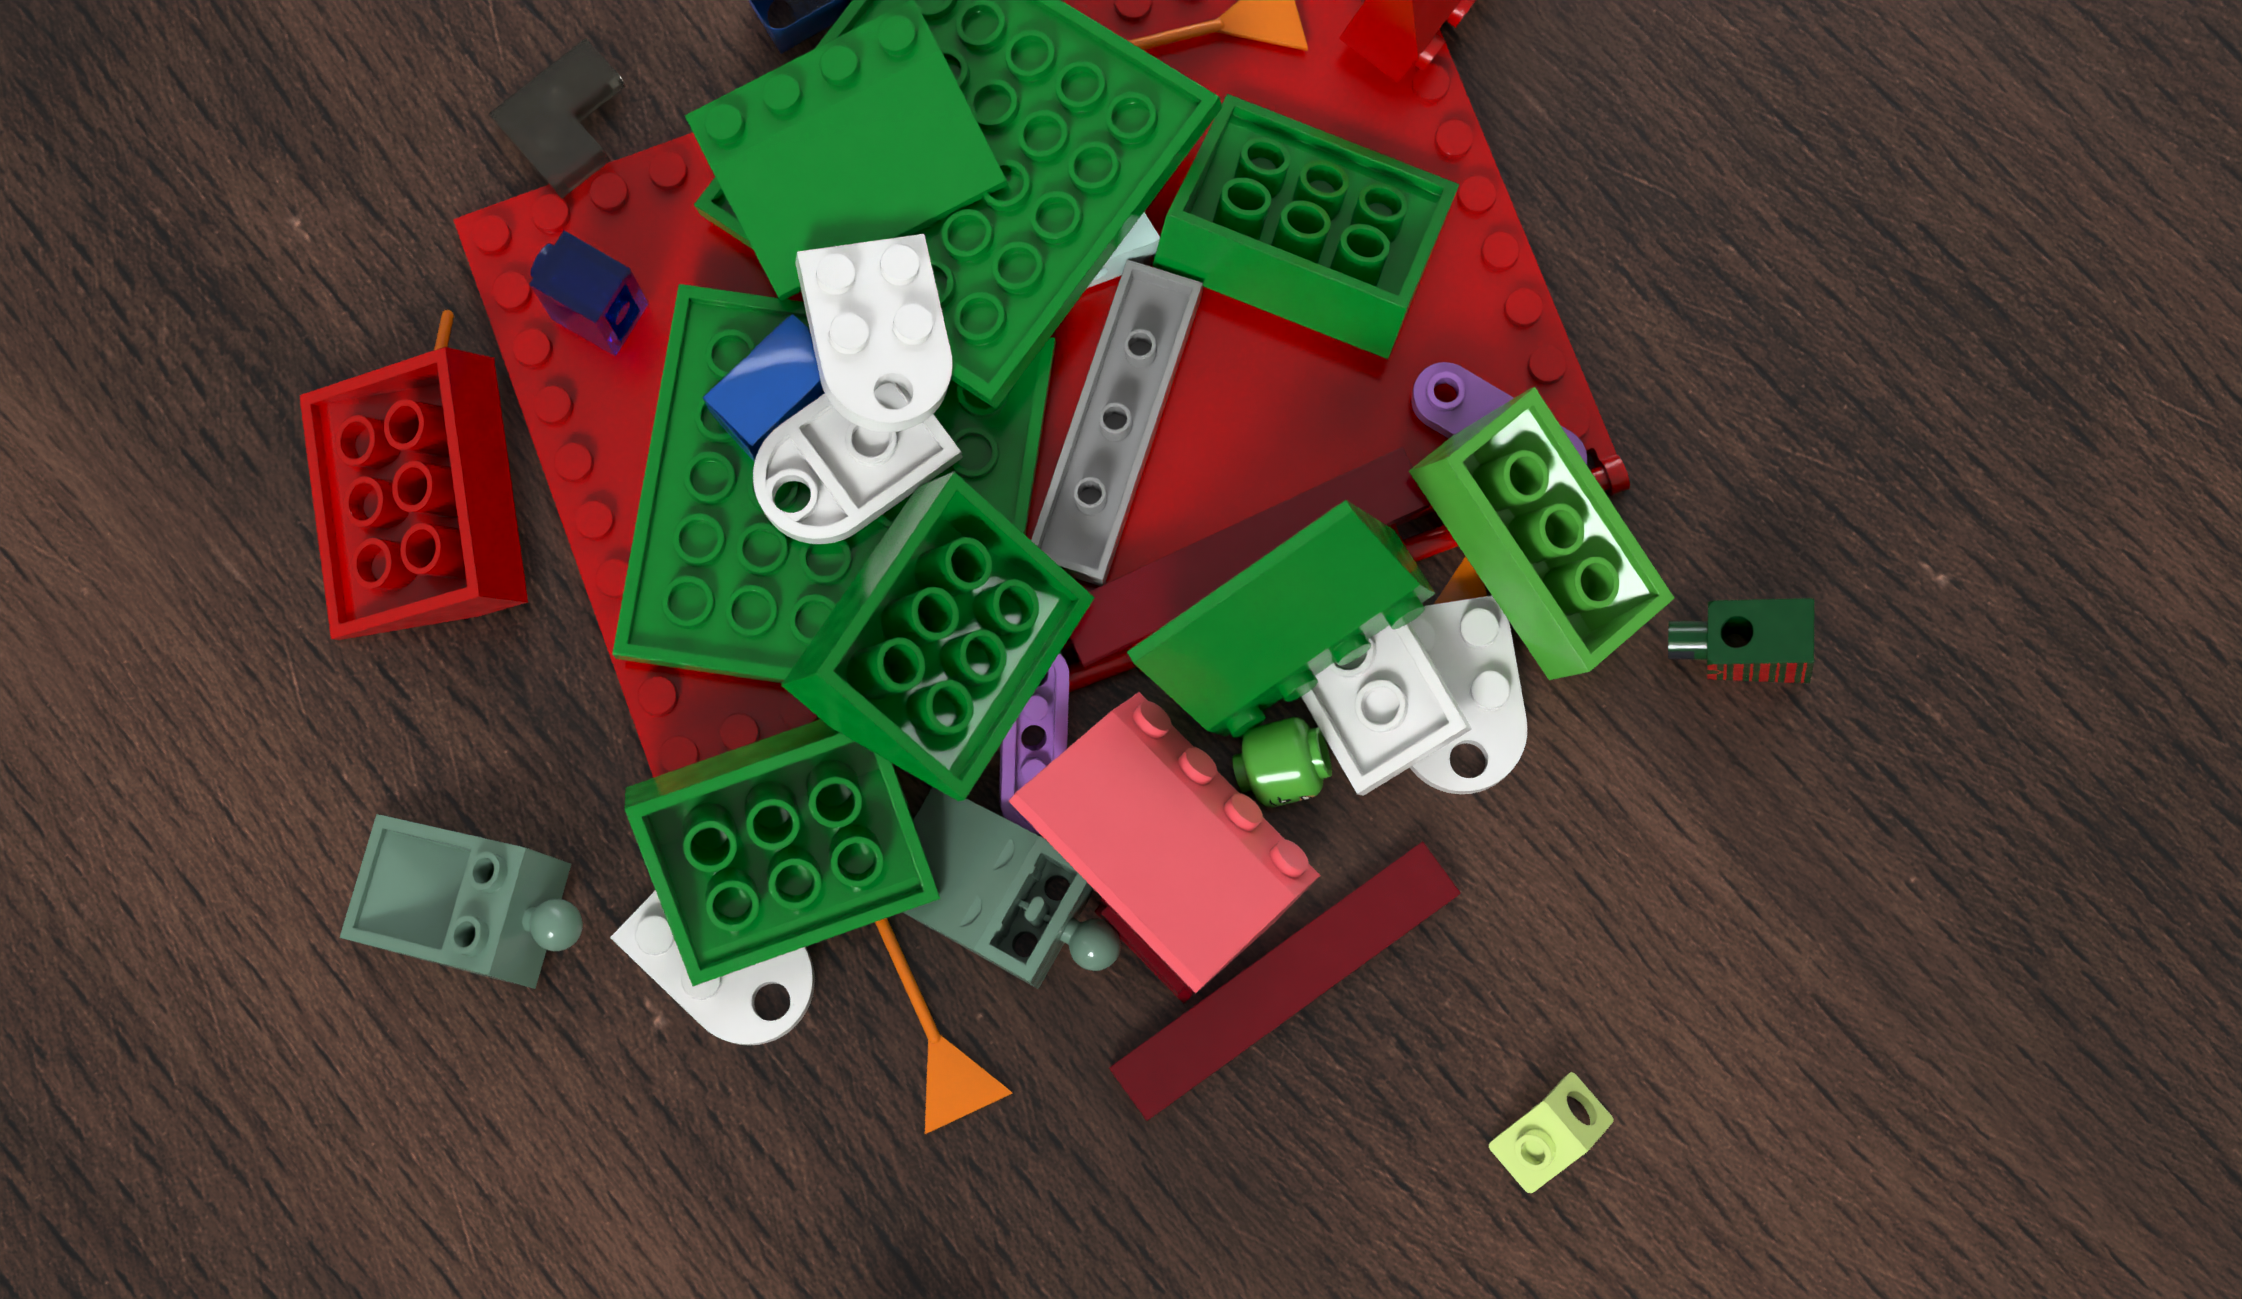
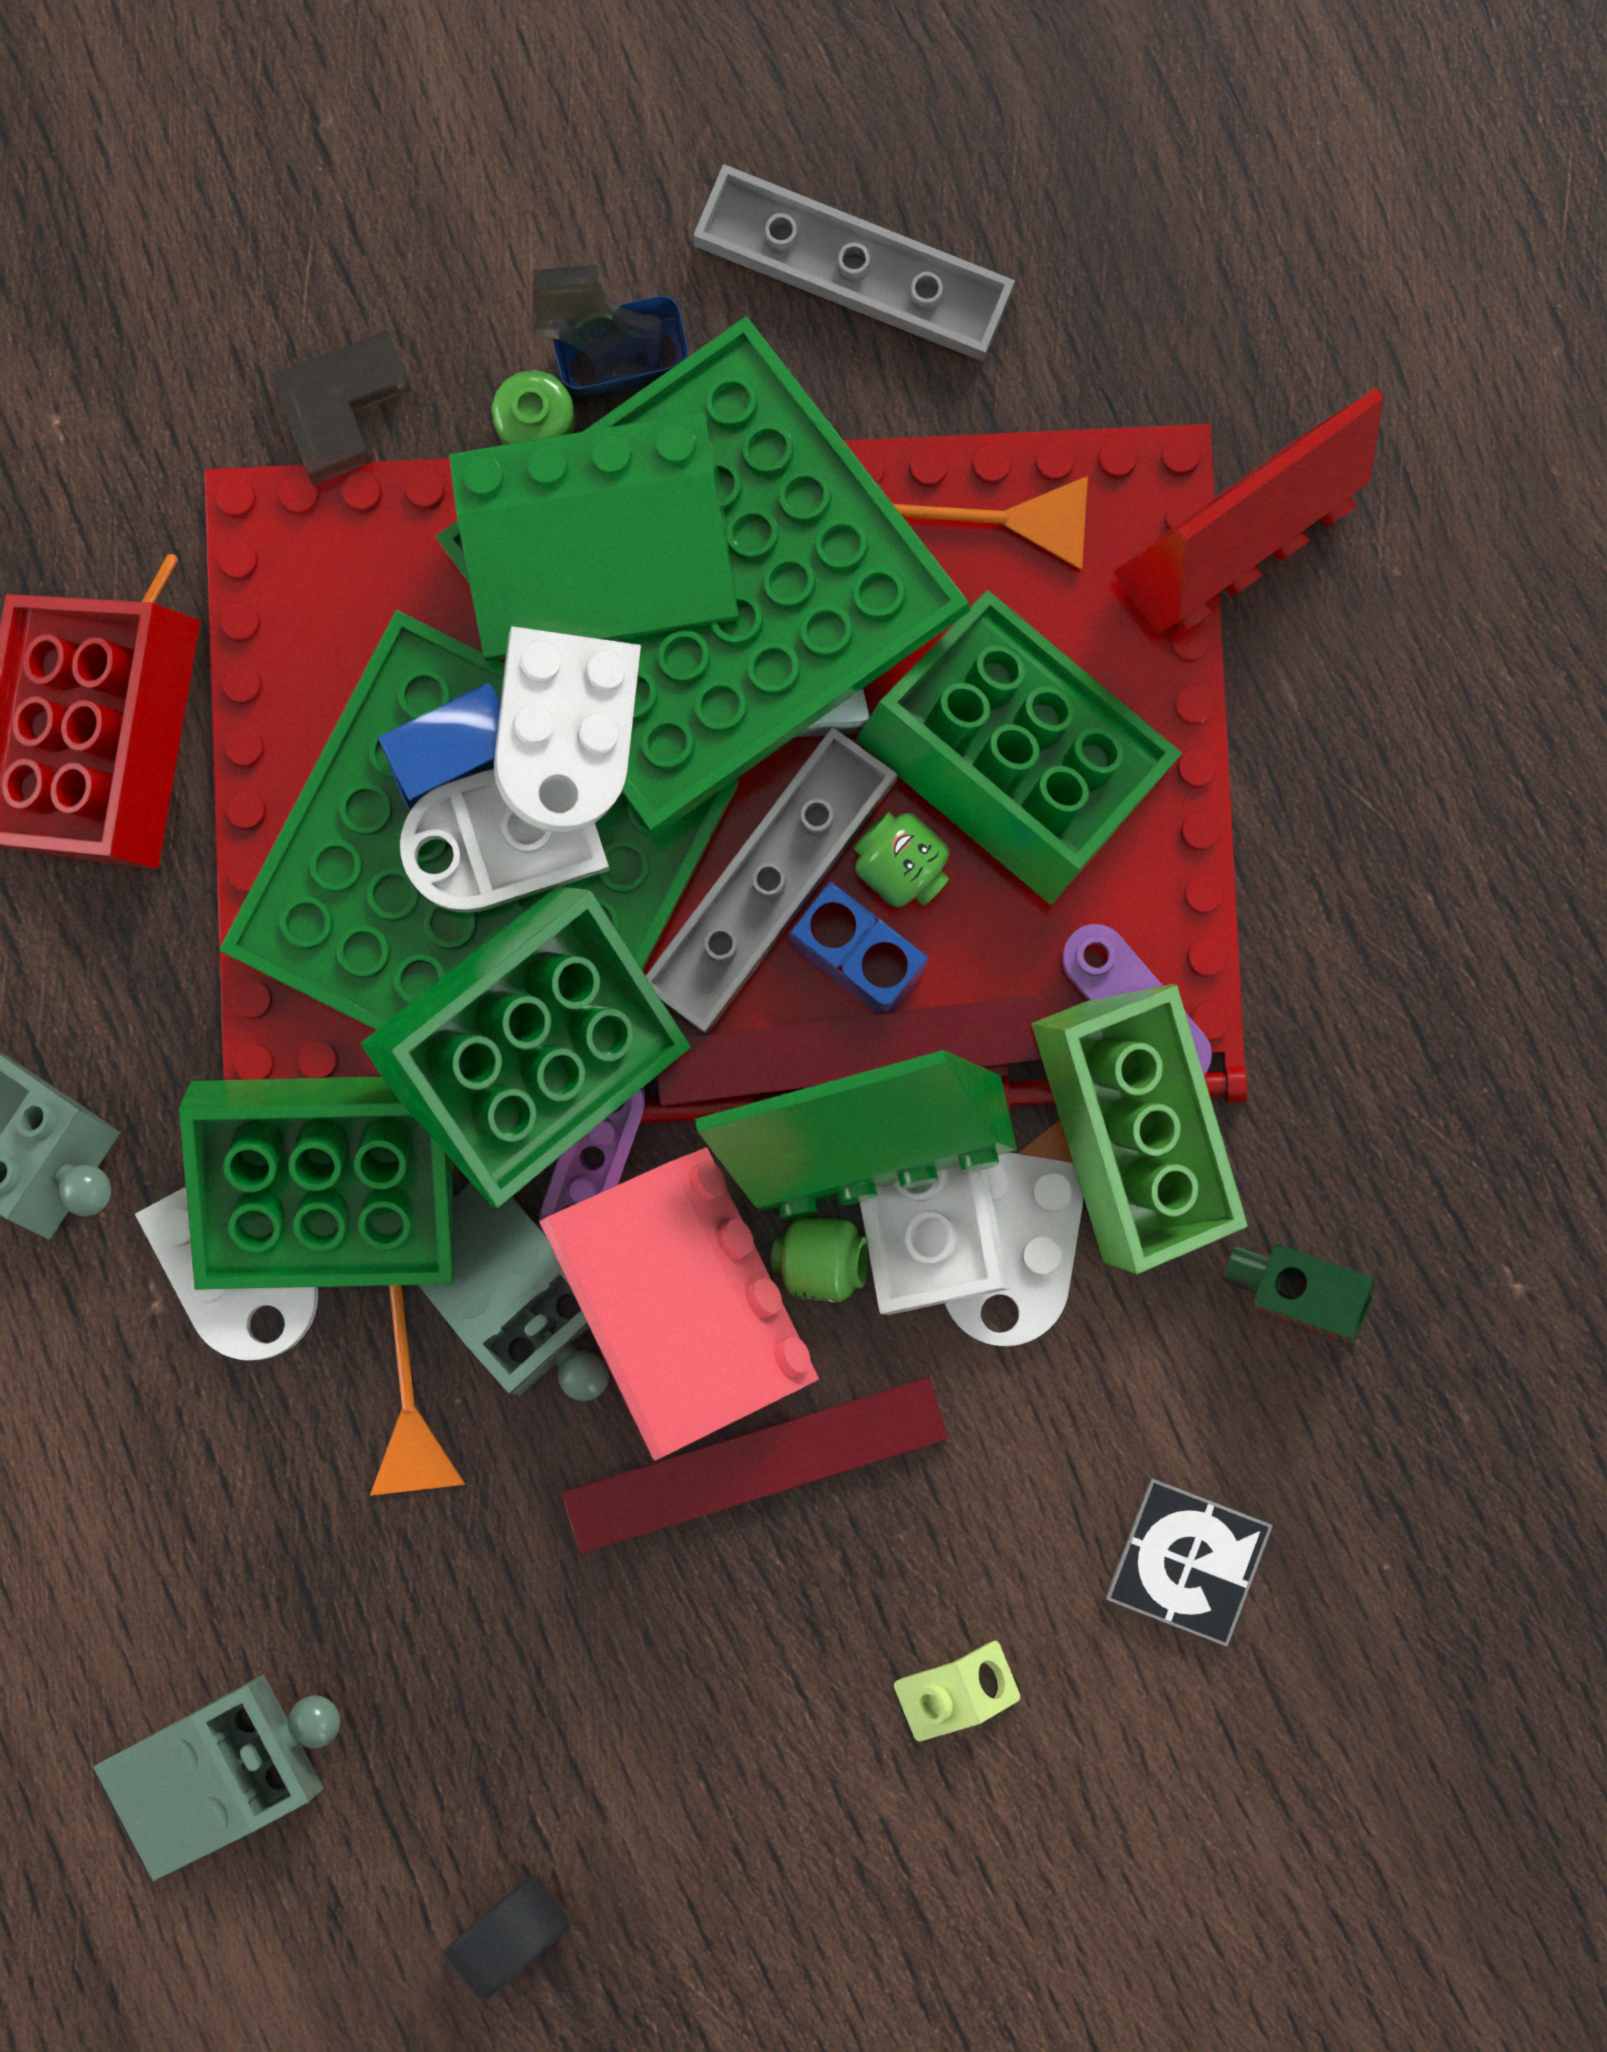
camera: 25 degrees right, 5 degrees up
(588, 292) = (304, 592): clear blue brick -> none
(743, 56) = (532, 408): none -> bright green head
(1194, 475) = (852, 953): none -> blue piece
(1234, 362) = (902, 860): none -> bright green head
(1727, 935) = (1188, 1562): none -> tile

